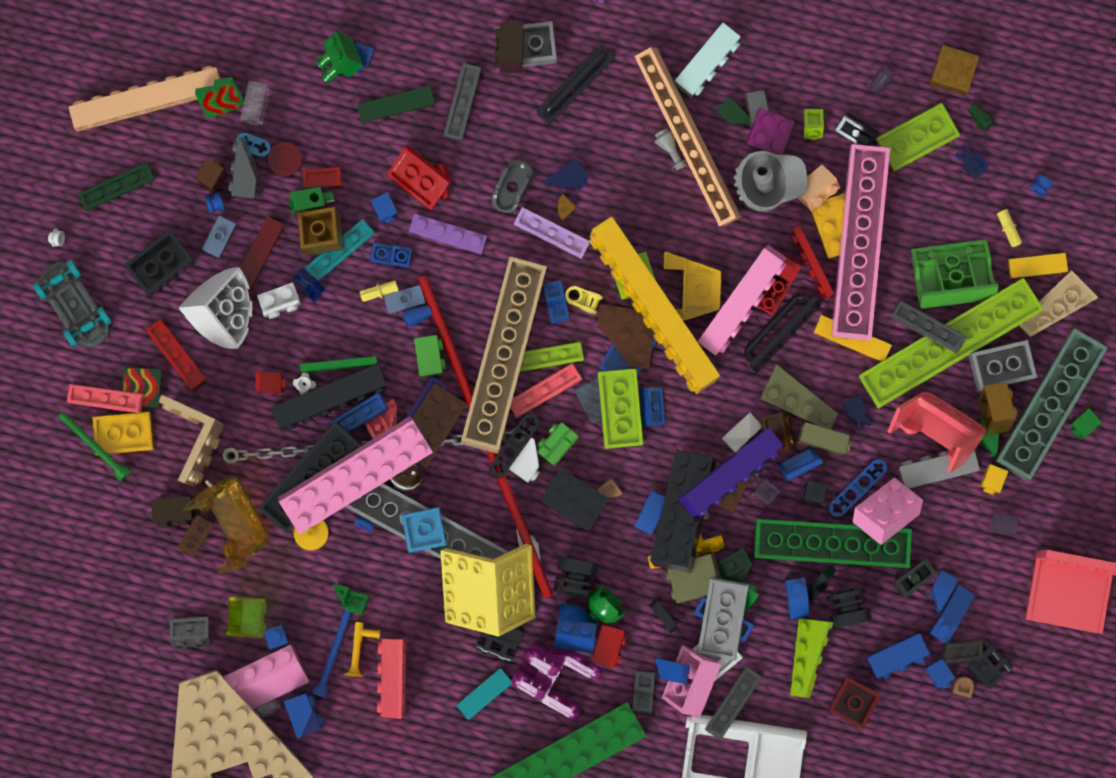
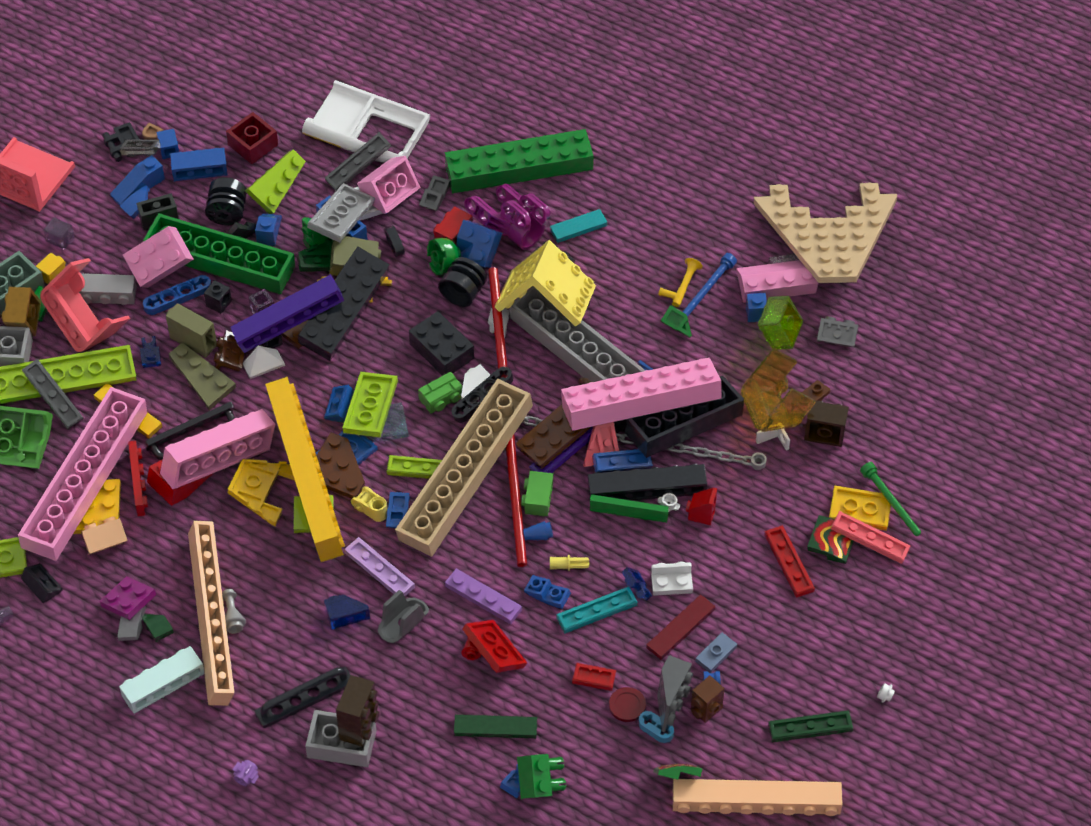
camera: 165 degrees left, 30 degrees down
(74, 305) = (883, 631): dark grey piece -> none
(159, 263) = (783, 636): black brick -> none
(206, 441) = (780, 477): tan bracket -> none
(221, 308) = (731, 581): white brick -> none
(255, 103) = (642, 761): clear brick -> none
(301, 202) = (615, 653): green torso -> none
(303, 714) = (749, 242): blue slope -> none
(320, 231) = (610, 621): pearl gold brick -> none
(384, 208) = (539, 631): blue brick -> none
(392, 678) = (657, 246): coral slope -> none
(404, 299) = (544, 549): sand blue plate -> none
(424, 530) = (590, 344): dark azure tile -> none
(462, 102) = (426, 708): dark grey plate -> none
(545, 390) = (428, 443): coral tile -> none
(565, 207) = (357, 589): pearl gold tile -> none
(610, 489) = (405, 350): medium nougat tile -> none
(651, 512) = (372, 320): blue slope -> none
(672, 671) = (401, 195): blue slope -> none
(770, 180) = (146, 548): light grey piece -> none
(799, 464) = (222, 323): blue tile -> none
(813, 124) = (81, 596): lime bracket -> none

